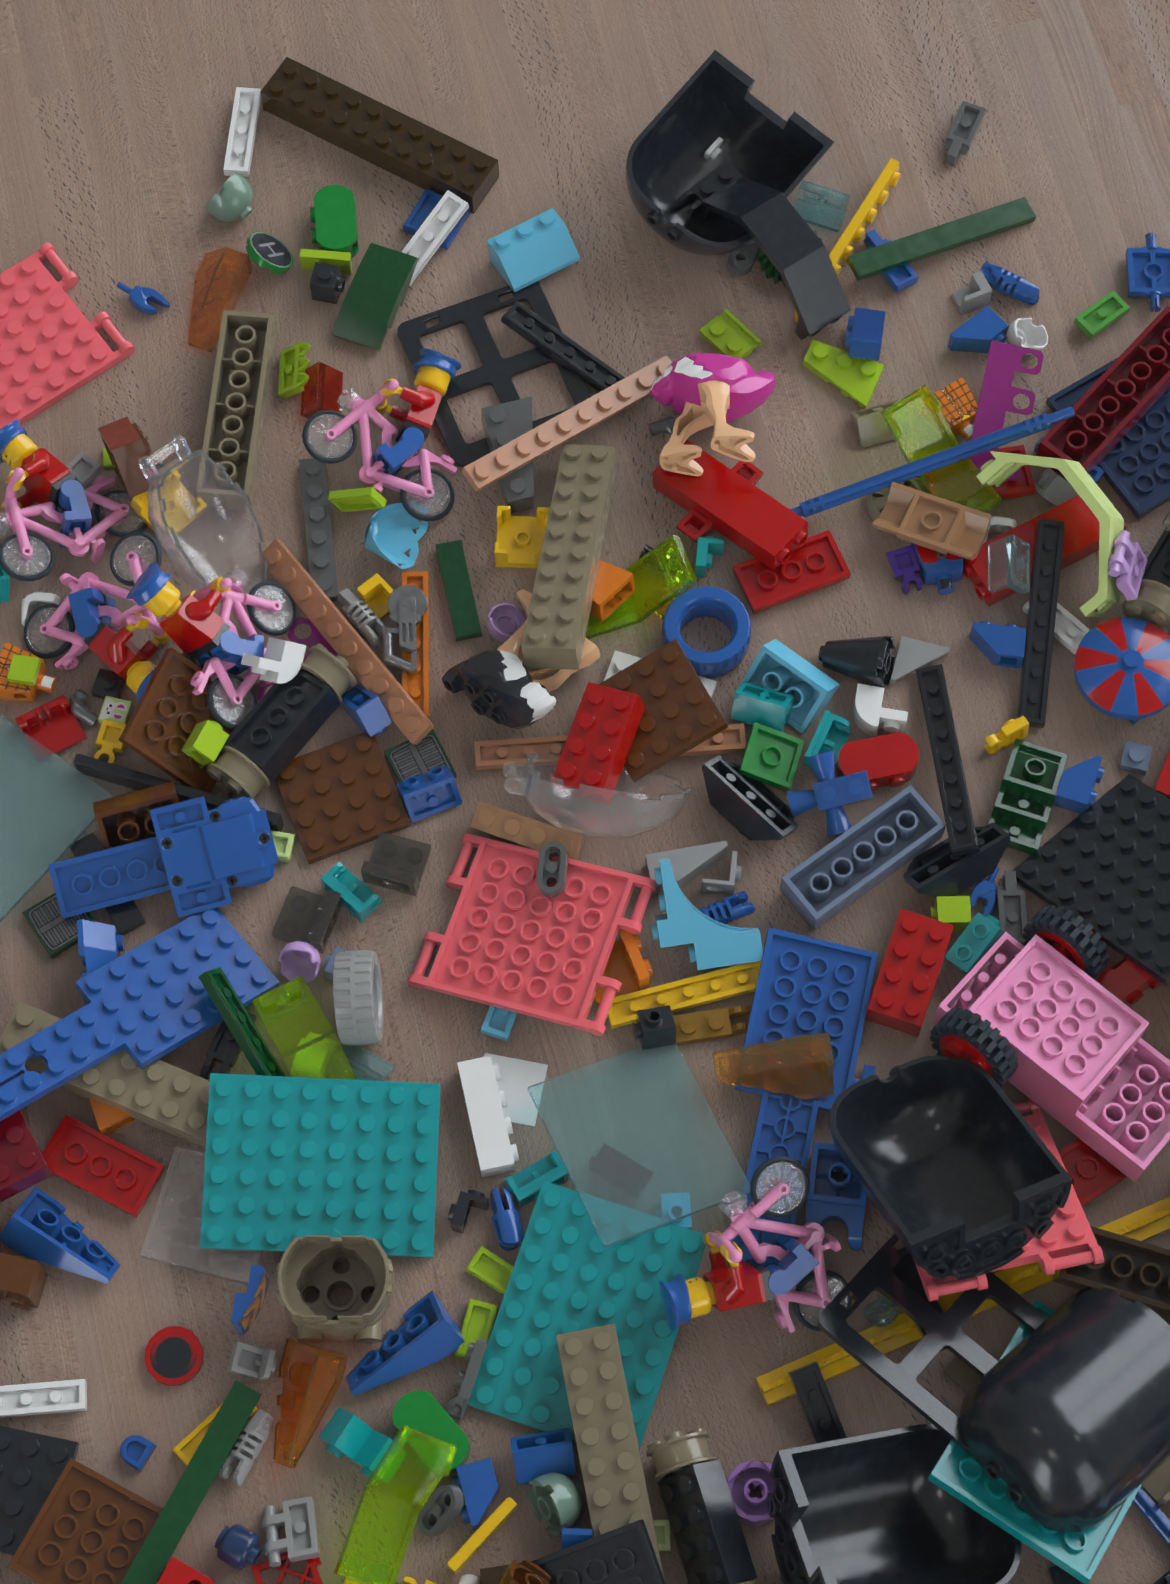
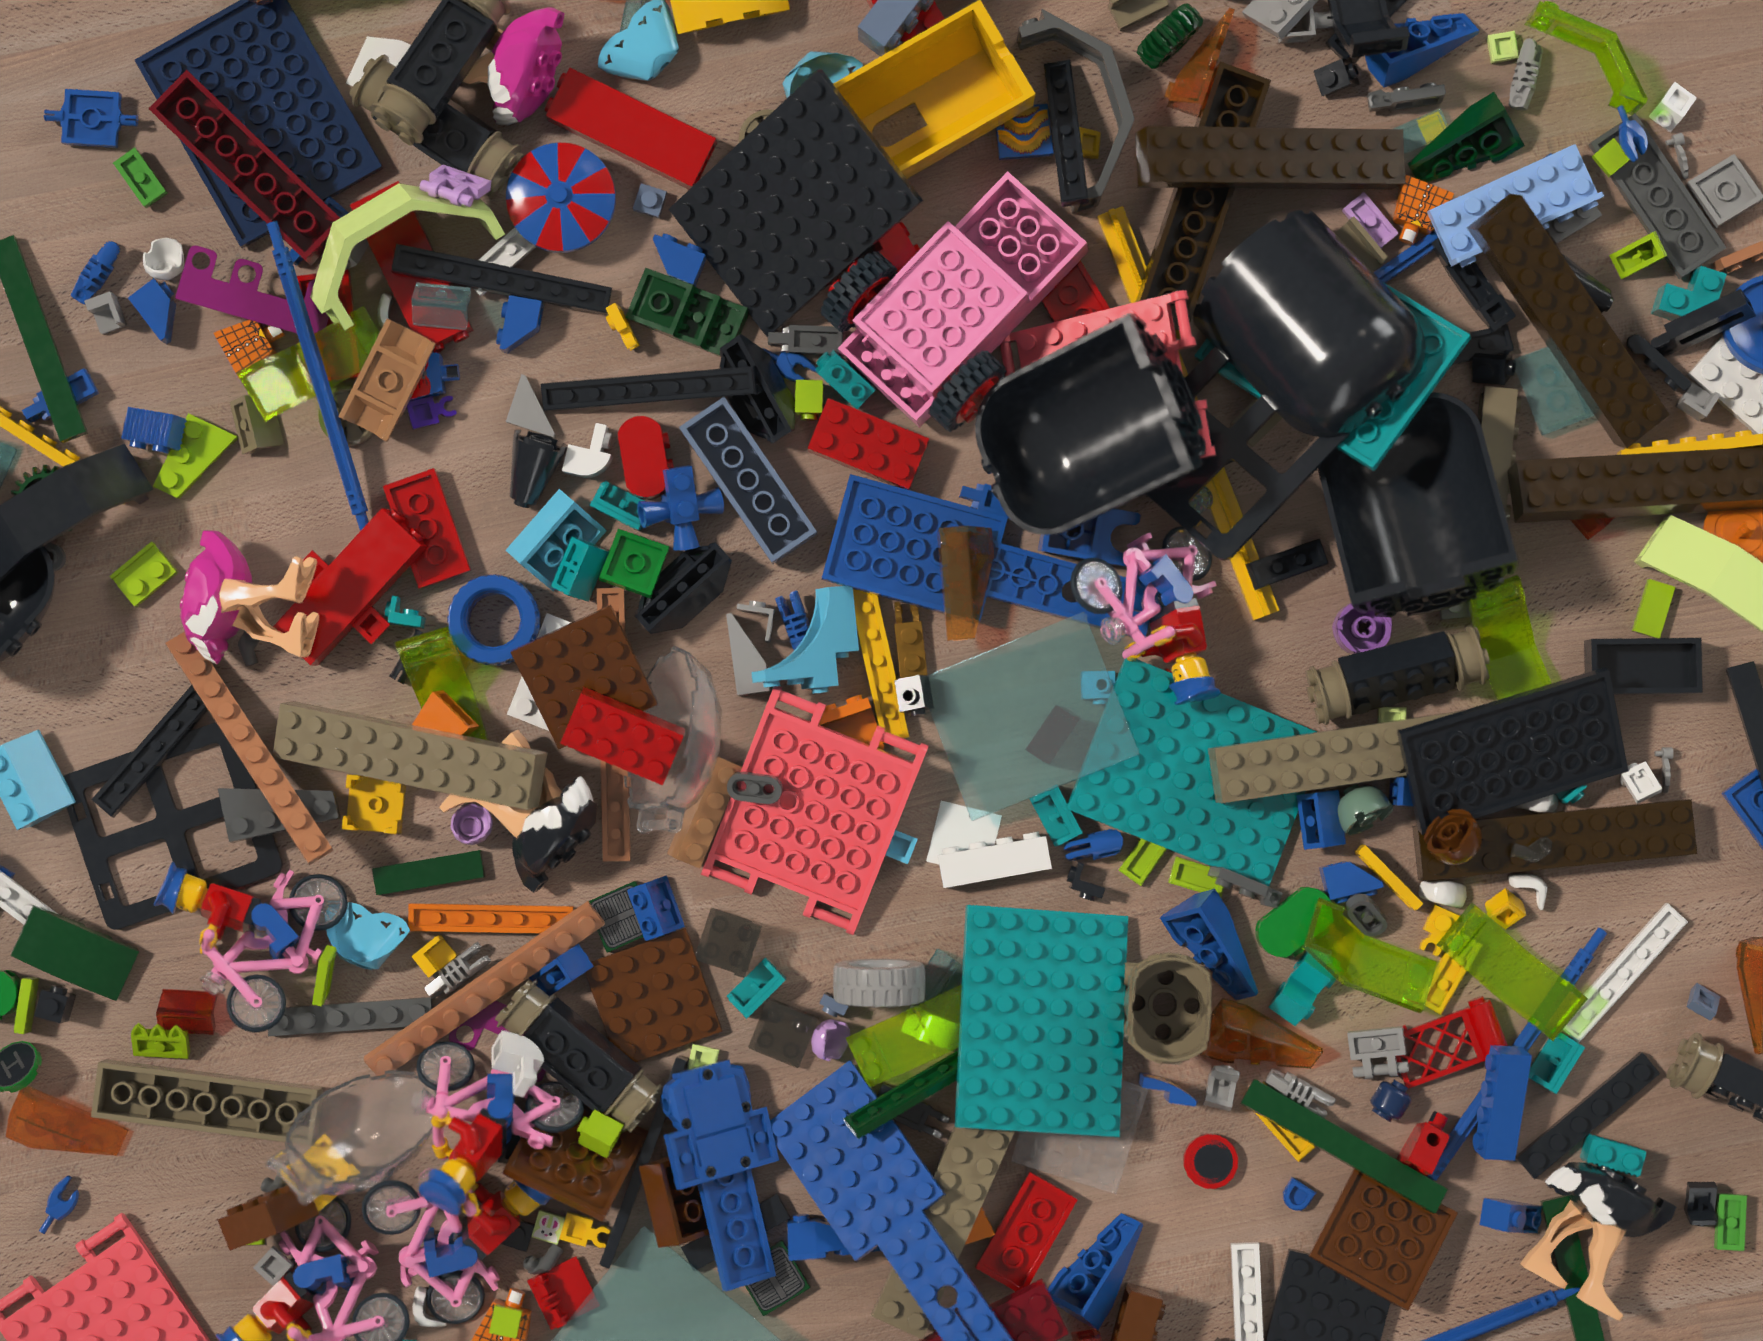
camera: 85 degrees left, 20 degrees up
(407, 607) = (452, 925): flat silver piece -> none

